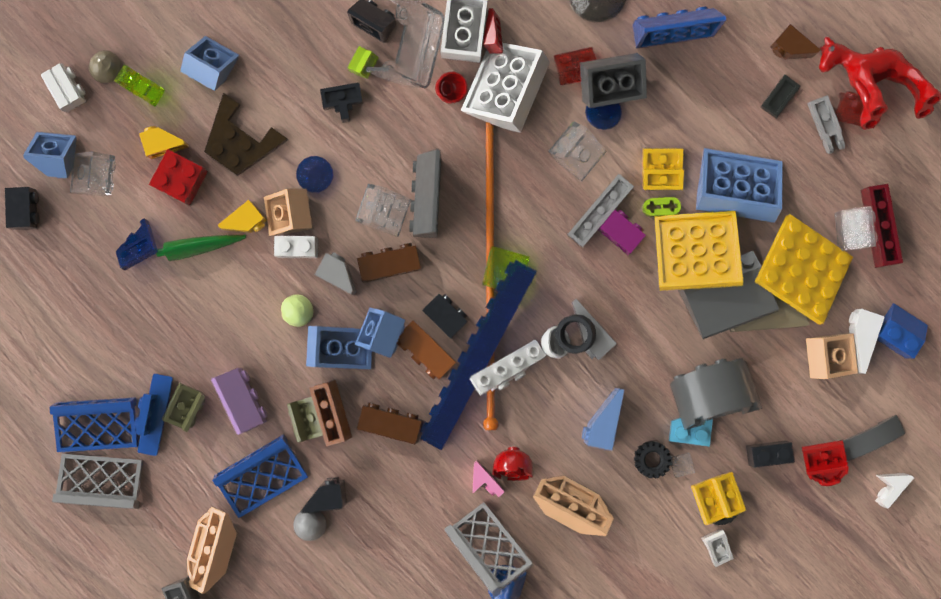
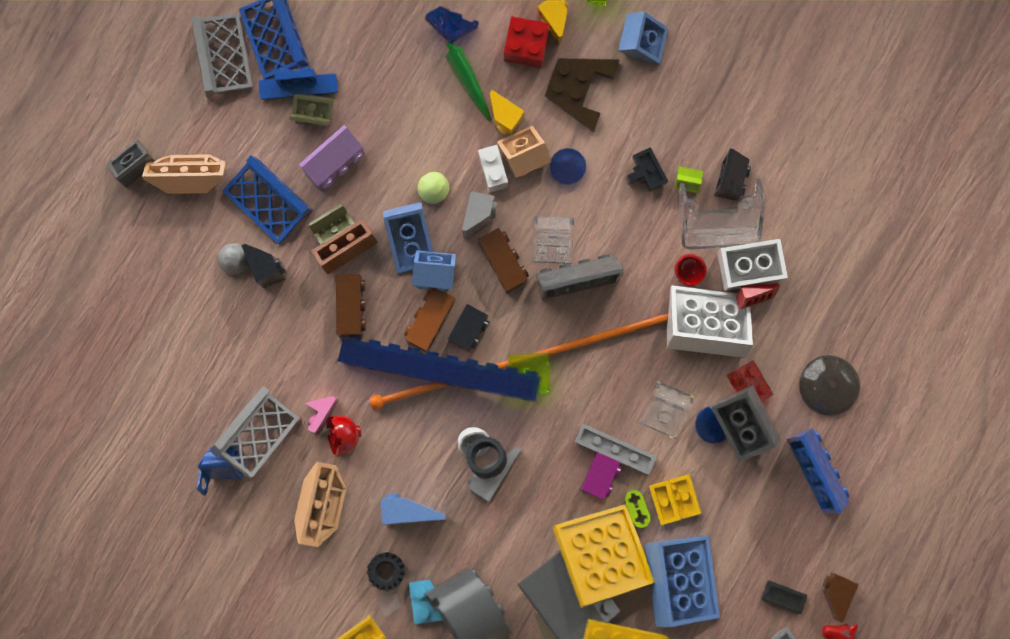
camera: 75 degrees right, 5 degrees down
(508, 368) = (433, 401): white bracket -> none

